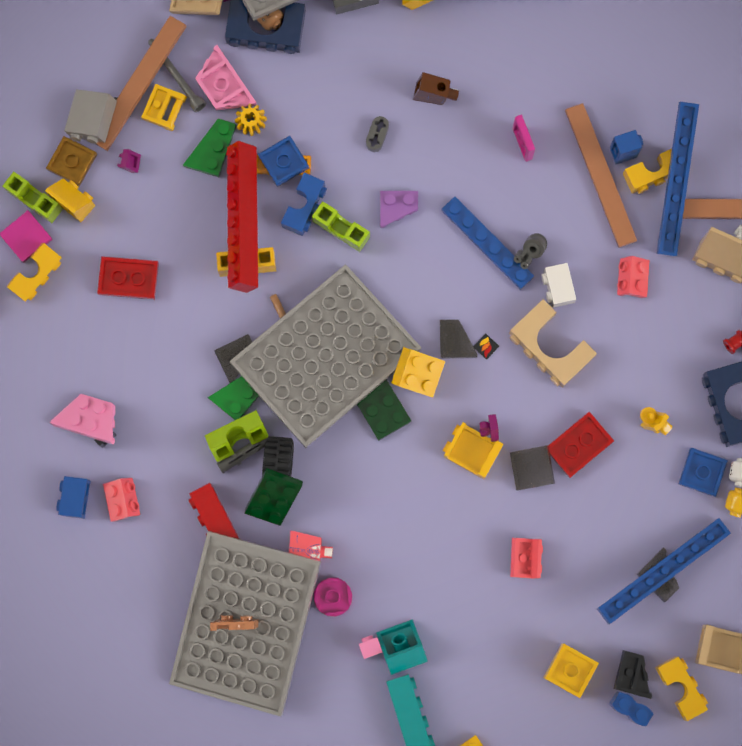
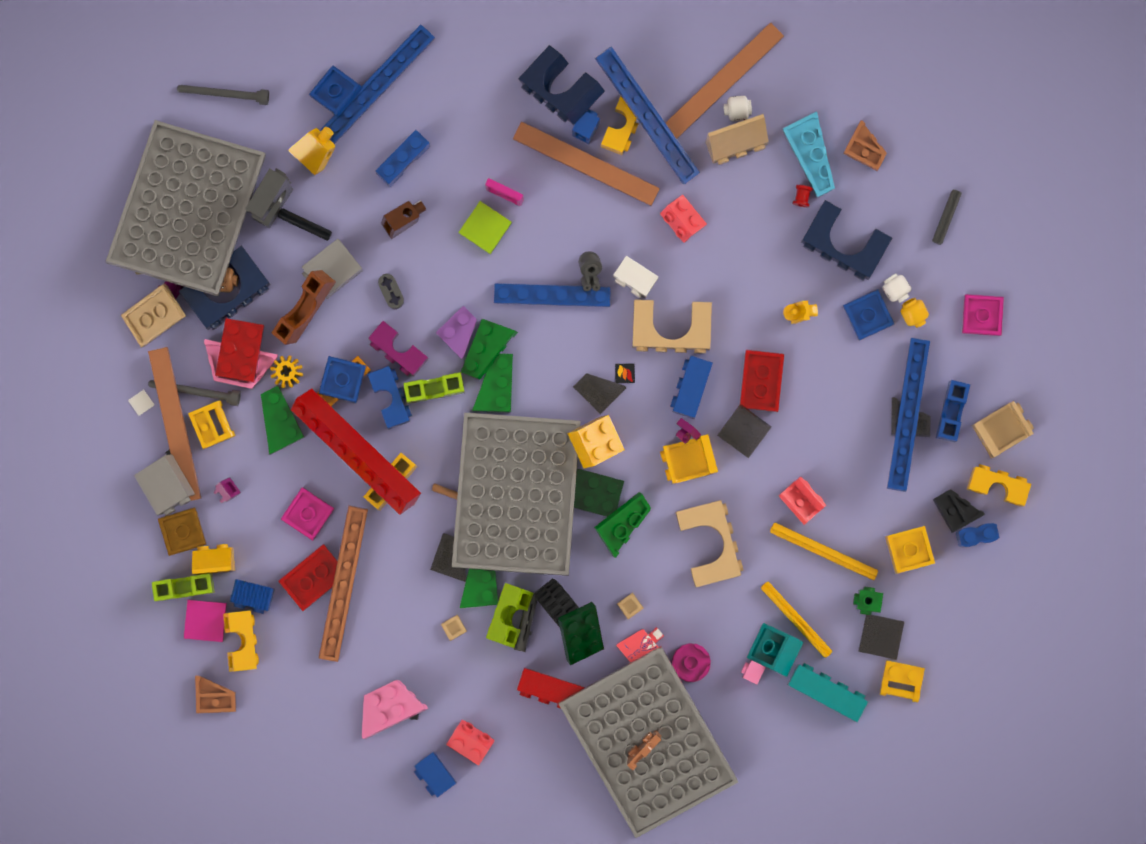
camera: 50 degrees left, 5 degrees up
(74, 249) = (251, 595): none -> blue brick
(132, 48) = (141, 402): none -> white sticker
(143, 301) = (343, 583): none -> nougat tile
(168, 231) = (307, 513): none -> dark pink tile
(190, 407) = (453, 627): none -> tan tile
(232, 74) = (239, 350): none -> red plate
(286, 91) = (295, 322): none -> dark orange arch
(329, 513) = (630, 606): none -> tan tile
(340, 161) = (383, 339): none -> magenta arch
(350, 79) = (335, 262): none -> light grey brick
(363, 33) = (304, 224): none -> black axle
(380, 448) = (619, 525): none -> green wing
(387, 268) = (496, 387): none -> green wing
(409, 232) = (487, 344): none -> green wing
(426, 551) = (713, 516): none -> tan arch
(438, 642) = (796, 619): none -> yellow axle
(464, 49) = (402, 157): none -> blue arch
(486, 152) = (485, 227): none -> lime tile
(488, 713) = (881, 636): none -> clear smoke tile
(506, 611) = (824, 551): none -> yellow axle
(511, 679) = (875, 601): none -> green brick
(524, 400) = (691, 387): none -> blue brick
(629, 116) = (569, 104): none -> dark blue arch
(699, 599) = (952, 409): none -> blue arch

